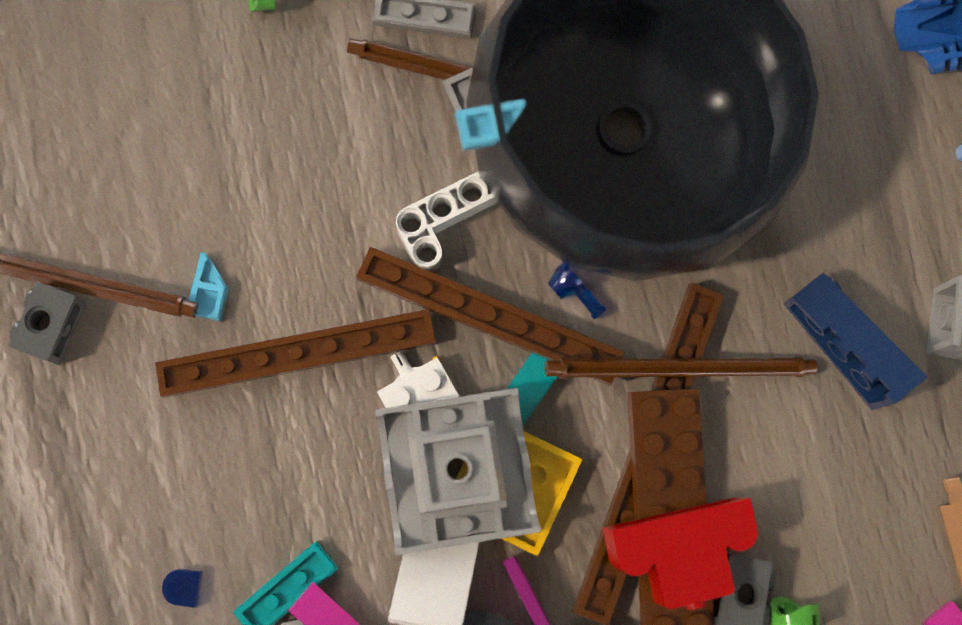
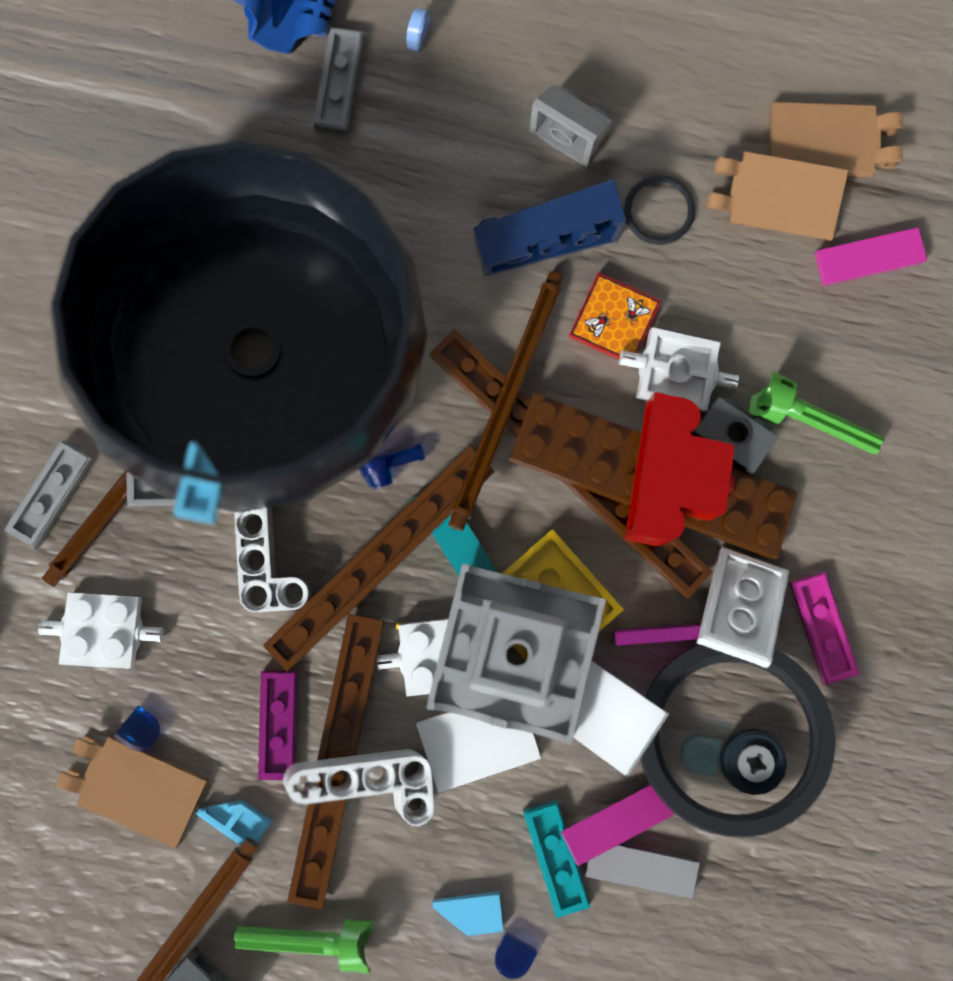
camera: 65 degrees left, 5 degrees up
(137, 432) = (347, 945): none -> bright green piece
(202, 193) = (135, 789): none -> medium nougat tile
(208, 533) = (472, 913): none -> medium azure tile
(253, 173) = (139, 730): none -> clear blue tile
(282, 379) = (358, 785): none -> white beam
(305, 290) = (277, 723): none -> magenta tile
(325, 106) = (100, 631): none -> white plate
(354, 471) = (470, 749): none -> white tile
(783, 515) = (678, 367): none -> white plate
(799, 437) = (614, 317): none -> tile
(897, 101) = (338, 80): none -> light grey tile
(941, 415) = (660, 179): none -> black piece

